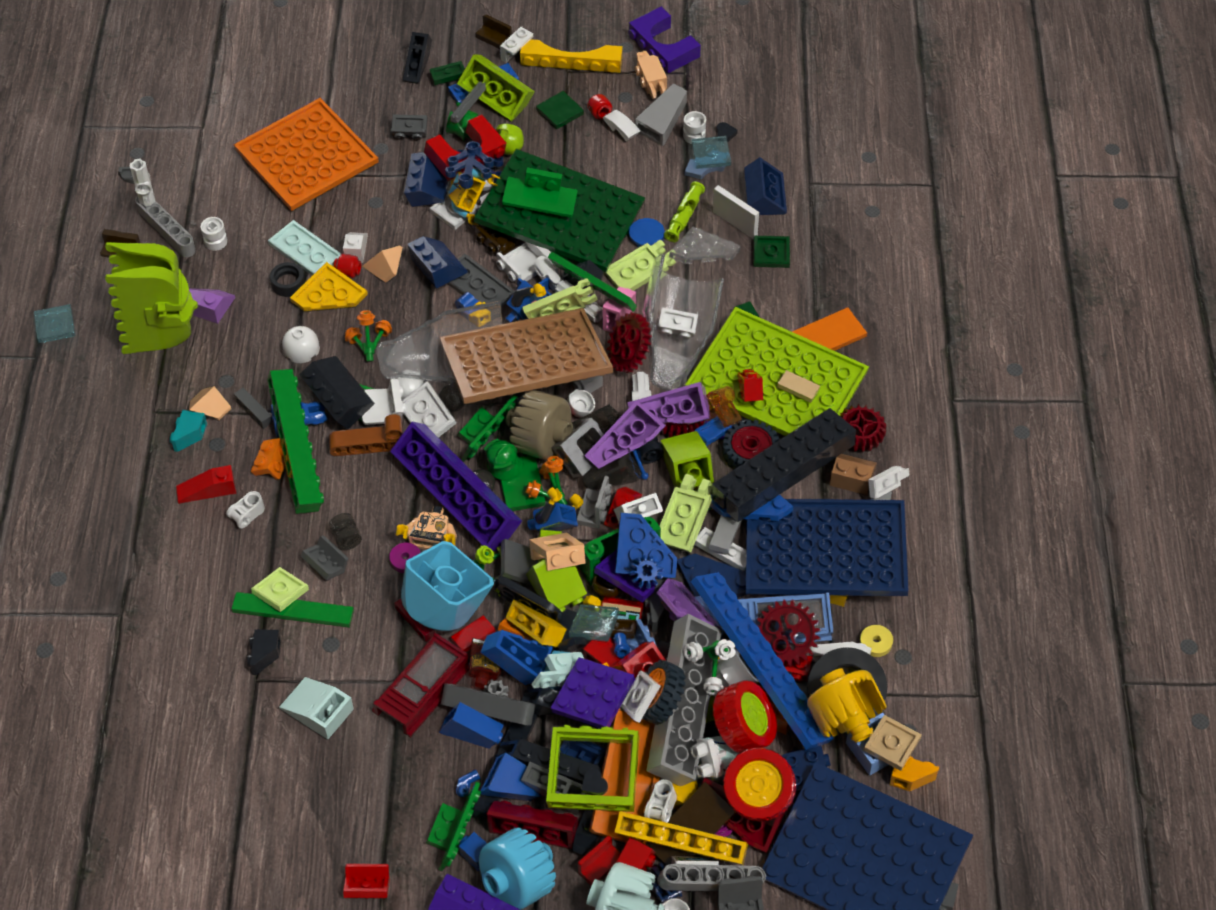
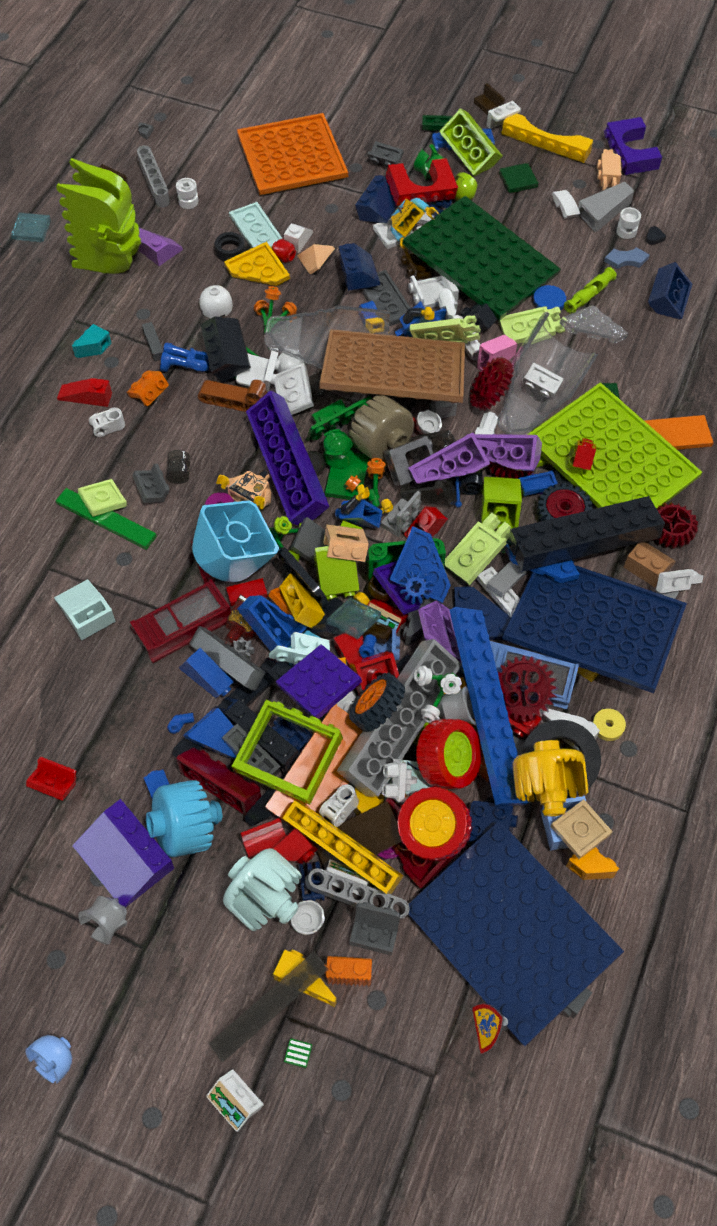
camera: 20 degrees right, 5 degrees up
(142, 182) = (143, 132): white piece -> none
(210, 402) = (119, 327): light nougat slope -> none
(265, 649) = (65, 544): black slope -> none
(294, 441) = (169, 378): green brick -> none
(417, 57) = (417, 102): black slope -> none
(450, 827) = (145, 754): green bracket -> none
(467, 103) = (440, 146): dark grey axle -> none
(471, 151) = (423, 183): dark blue plant -> none
(540, 193) = (468, 235): green bracket -> none
(594, 783) = (280, 765): black tile -> none
(597, 284) = (483, 324): green tile -> none
(599, 106) = (552, 183): red head -> none
(640, 696) = (357, 699): white tile -> none
(646, 506) = (438, 528): white slope -> none
(711, 152) = (634, 247): clear light blue tile -> none
(722, 402) = (552, 464): clear orange plate -> none
(735, 212) = (635, 302): white tile -> none
(772, 251) = (654, 347): dark green tile -> none
(798, 386) = (629, 469): tan tile -> none

